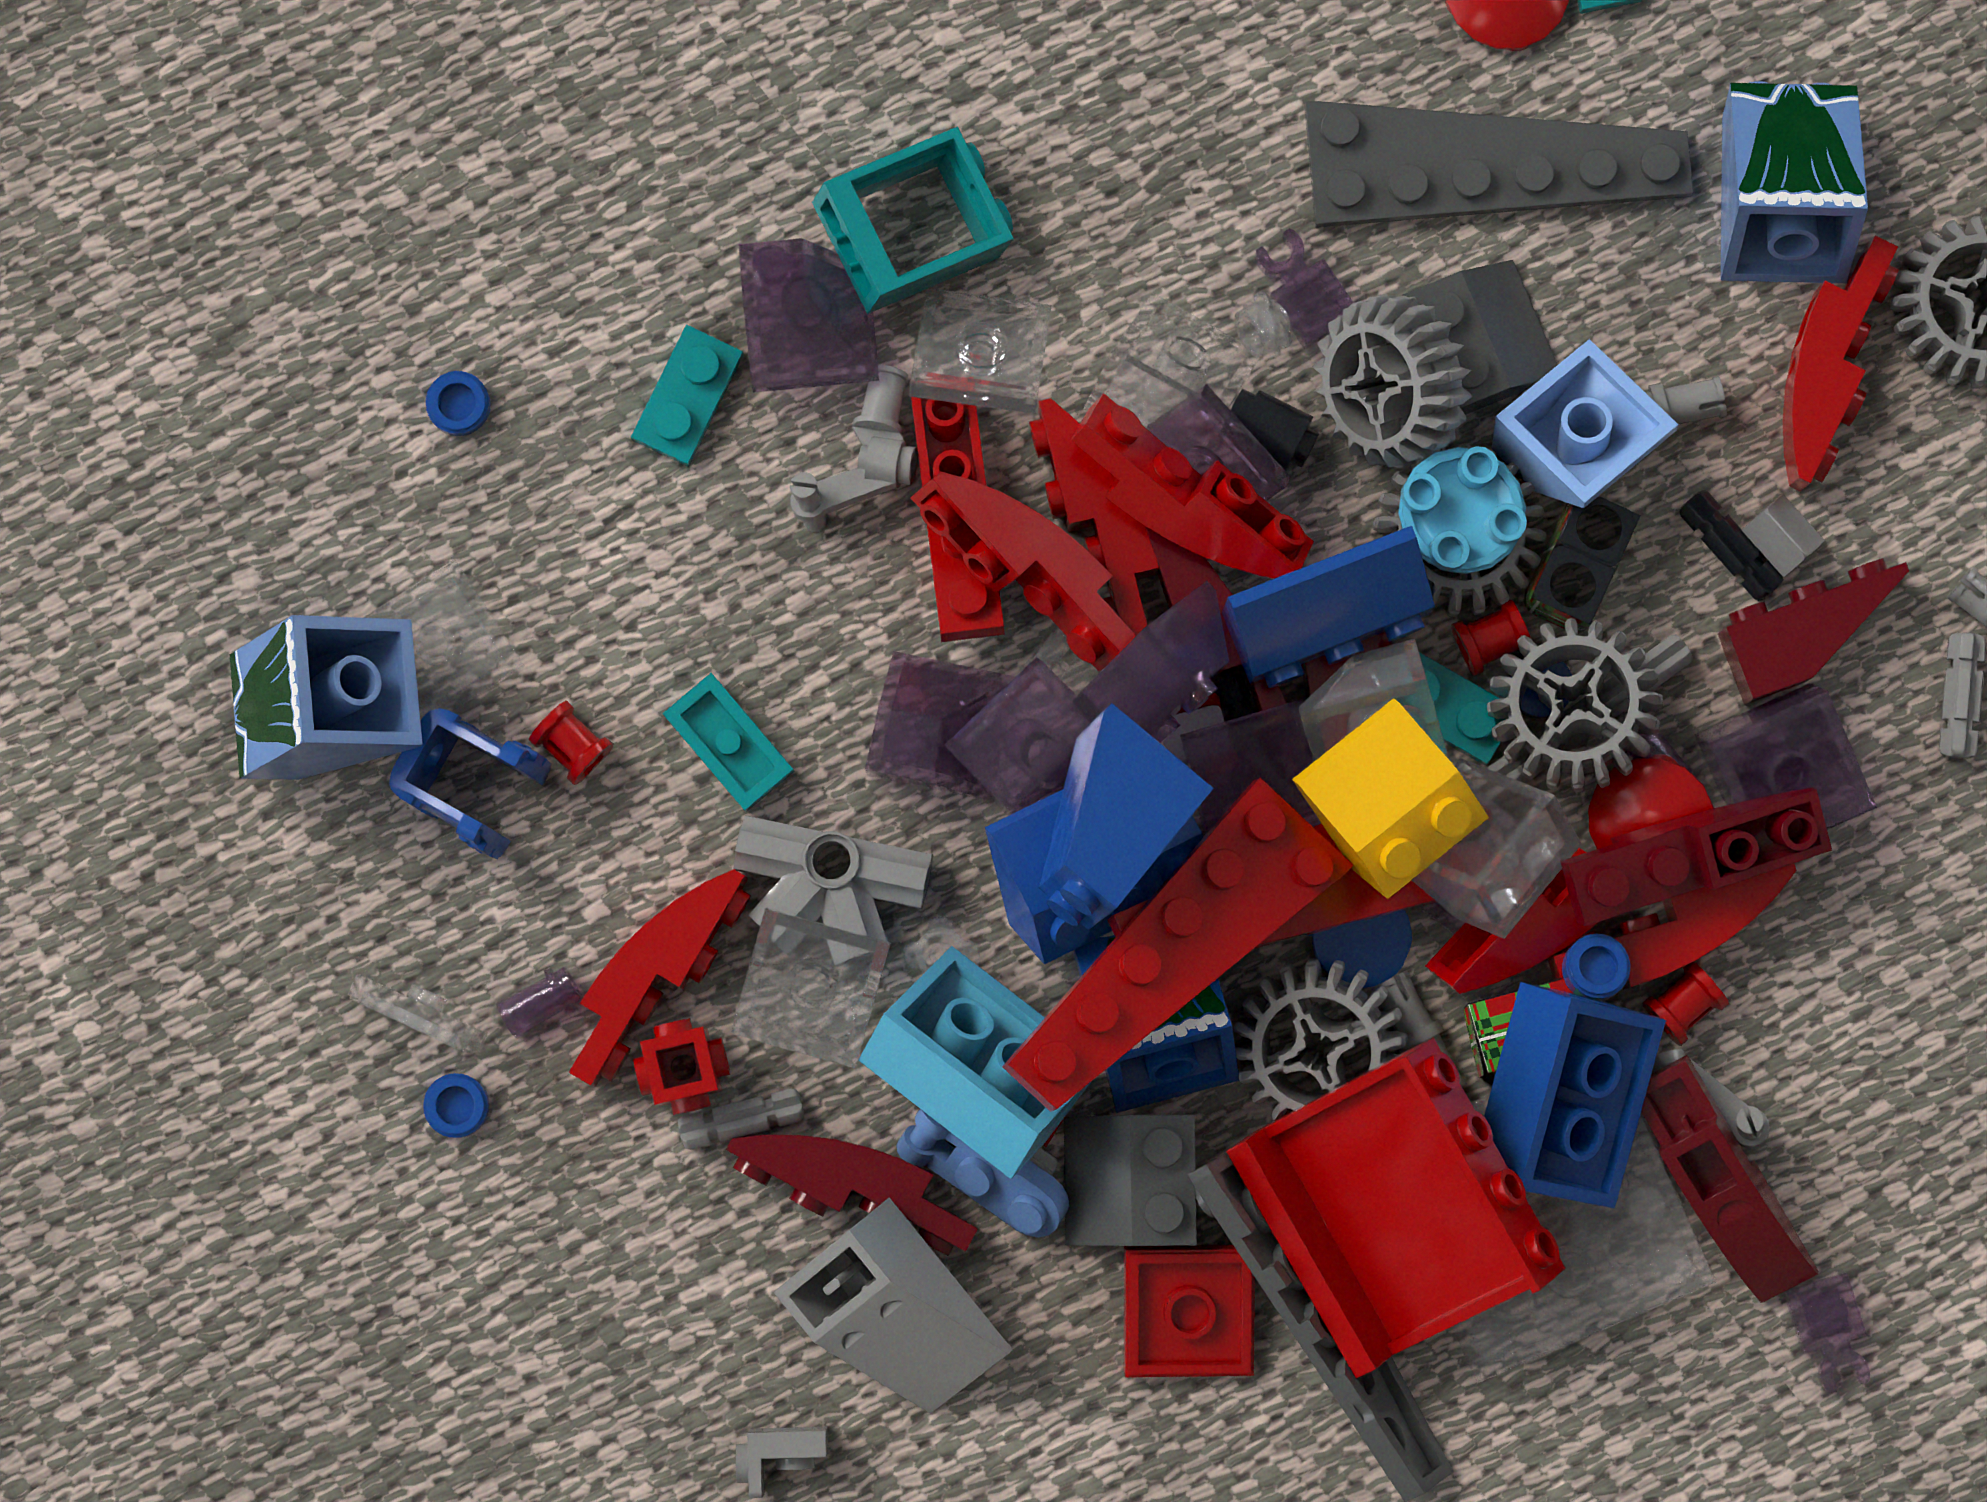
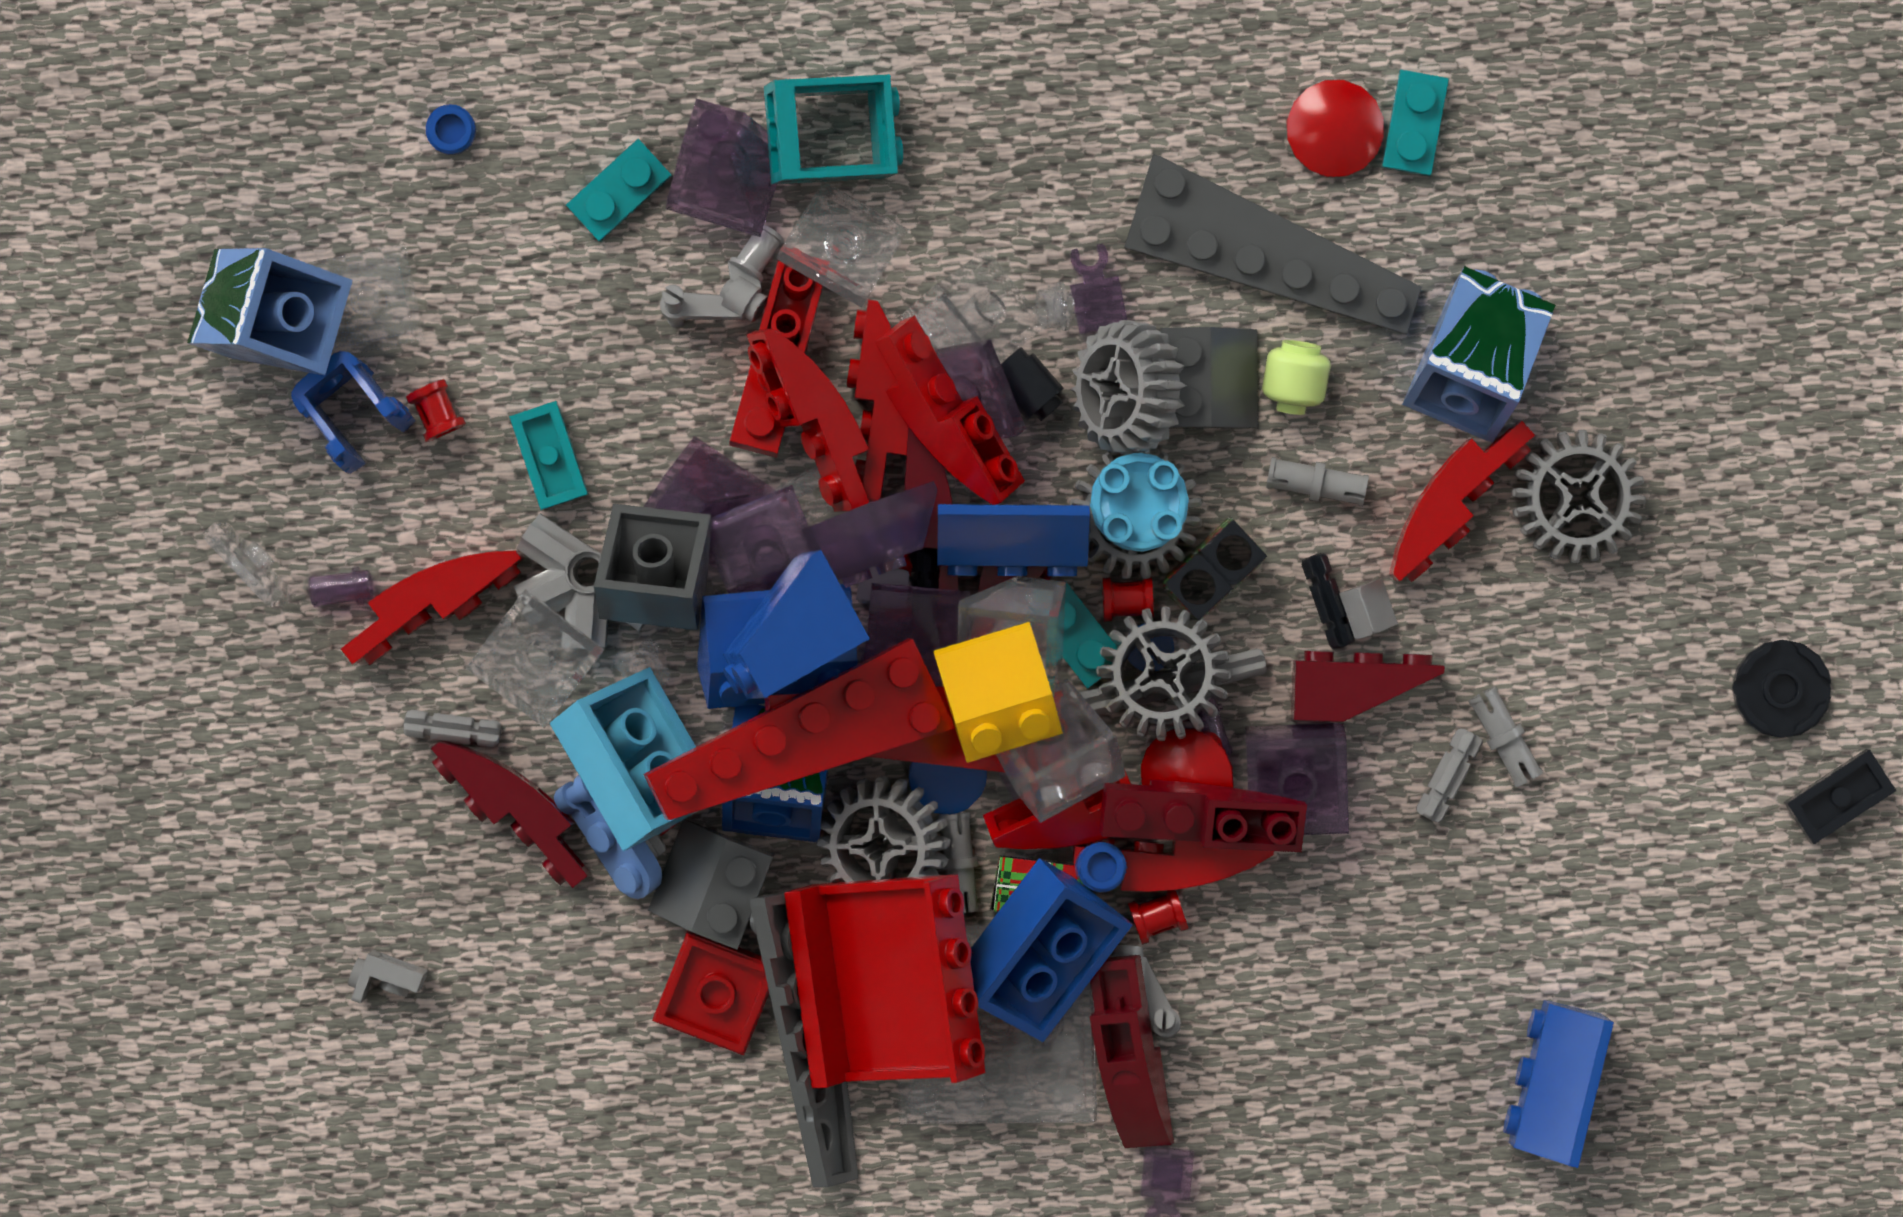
camera: 20 degrees right, 5 degrees up
(456, 1105) = (253, 637): blue tile -> none
(655, 1066) = (403, 676): red brick -> none
(894, 1311) = (504, 909): light grey slope -> none
(911, 818) = (653, 567): none -> dark grey slope
(1580, 428) = (1250, 476): light blue slope -> none
(1583, 294) = (1296, 376): none -> yellowish green head

